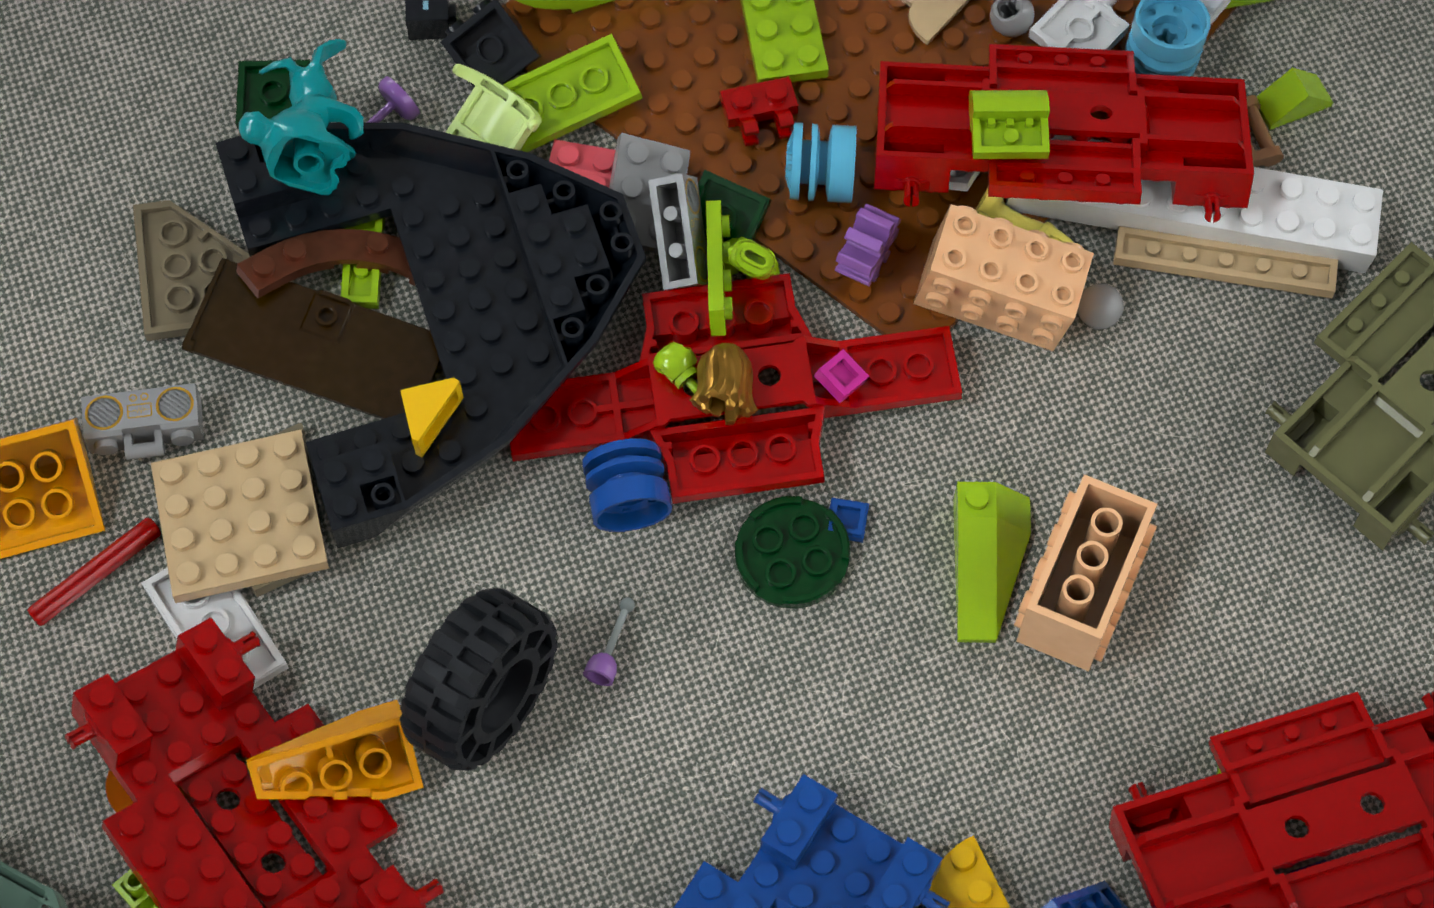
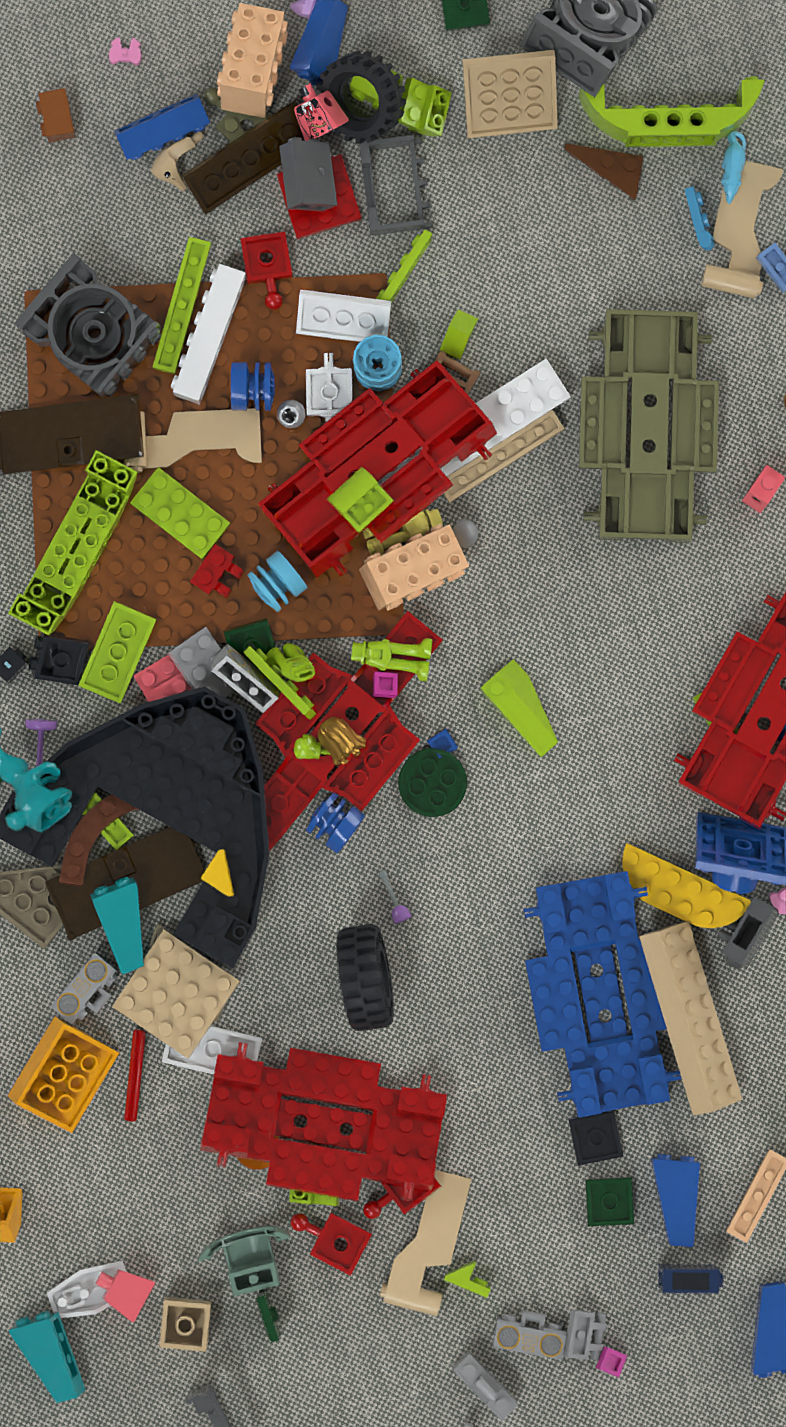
camera: 45 degrees left, 20 degrees up
(260, 374) = (120, 919): none -> teal slope
(344, 759) = (335, 1056): light orange wedge -> none
(493, 112) = (99, 698): yellowish green piece -> none
(867, 244) = (336, 605): medium lavender gear -> none
(868, 338) = (380, 656): none -> lime piece
(1086, 573) = (575, 682): light nougat brick -> none

